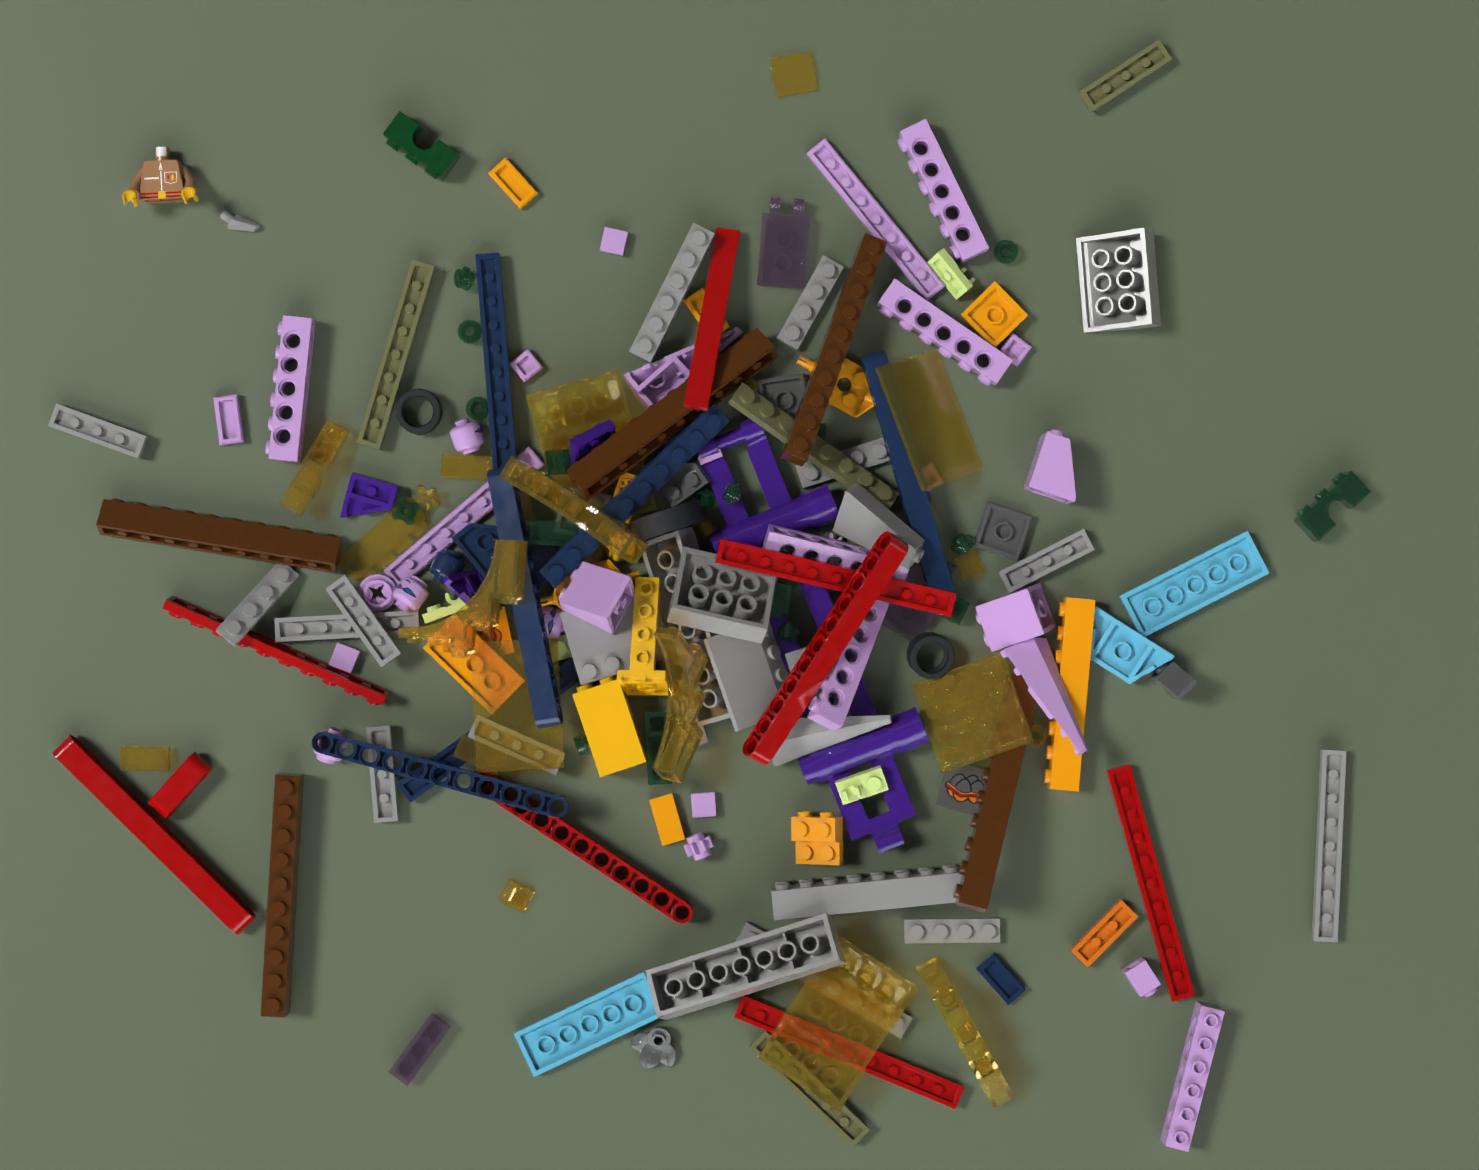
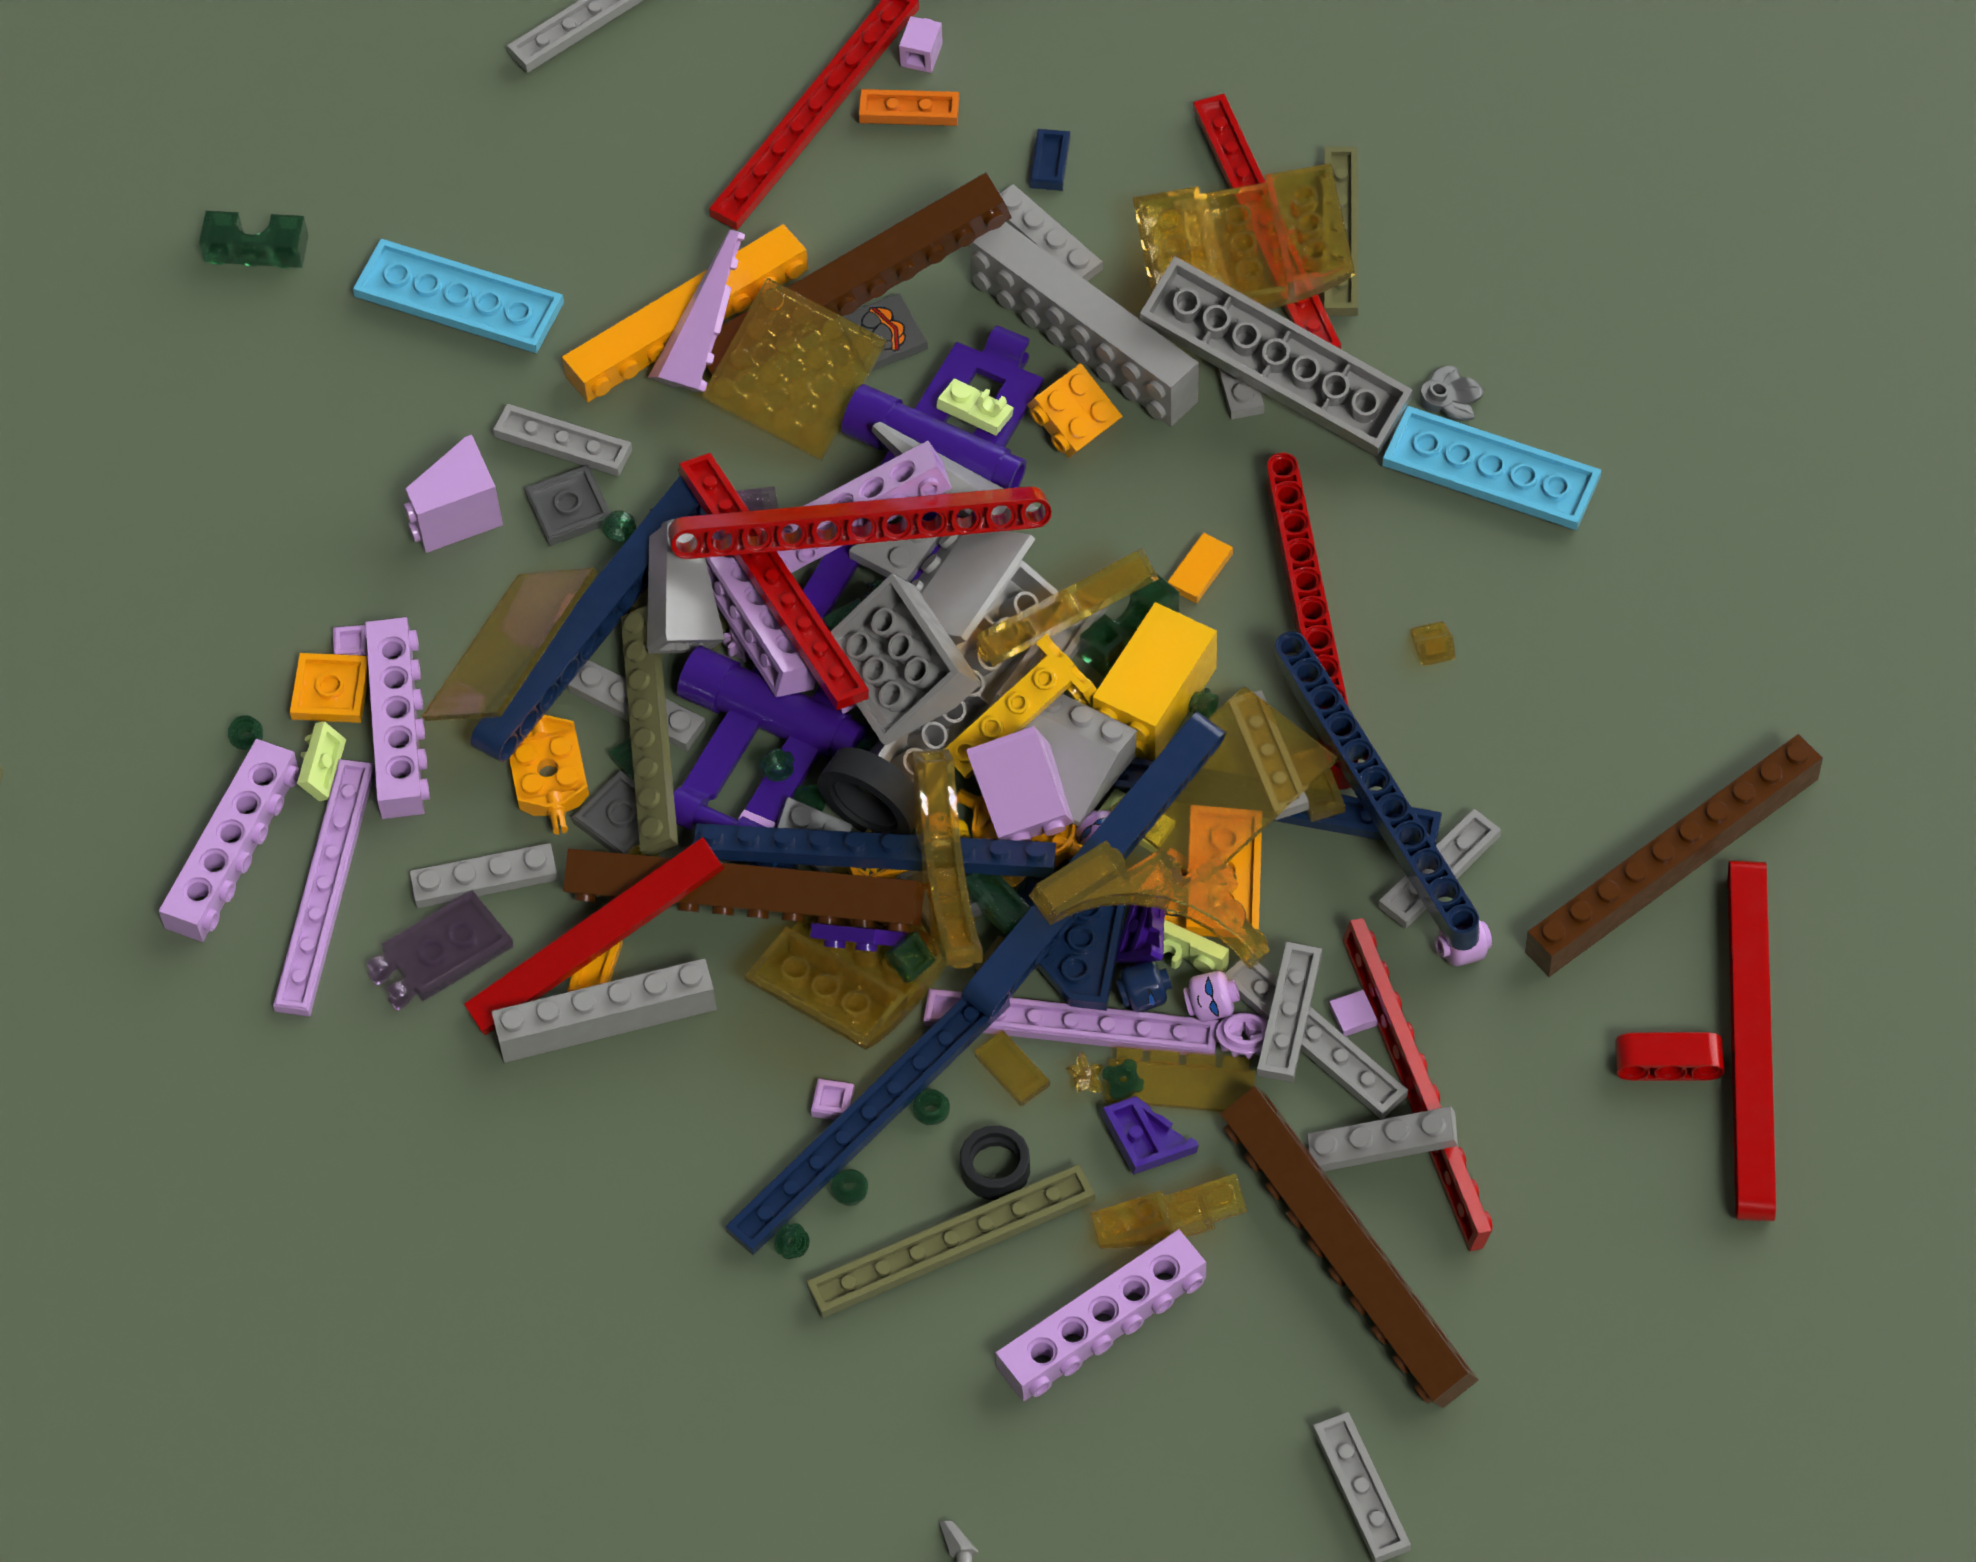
camera: 125 degrees left, 30 degrees down
(145, 758) = (1680, 1122): clear yellow tile -> none
(229, 419) = (1205, 1360): lavender tile -> none
(403, 134) = (673, 1384): dark green arch -> none
(419, 1049) = (1691, 597): clear purple plate -> none
(467, 436) = (974, 1086): lavender head -> none
(513, 183) = (627, 1287): light orange tile -> none
(613, 241) = (598, 1125): lavender tile -> none
(658, 378) = (724, 943): lavender wedge -> none
(698, 846) = (1196, 511): lavender gear -> none
(703, 804) = (1153, 543): lavender tile -> none
(793, 74) = (224, 1100): clear yellow piece -> none
(833, 350) = (515, 787): reddish brown brick -> none
(942, 668) = (772, 478): black tyre -> none
(965, 1032) = (1124, 147): clear yellow arch -> none
(968, 565) = (639, 502): clear yellow slope -> none
(1015, 617) = (655, 416): lavender slope -> none
(1118, 281) = (181, 600): light grey slope -> none
(1124, 649) = (589, 295): medium azure wing -> none
(1174, 680) = (579, 229): dark grey slope -> none

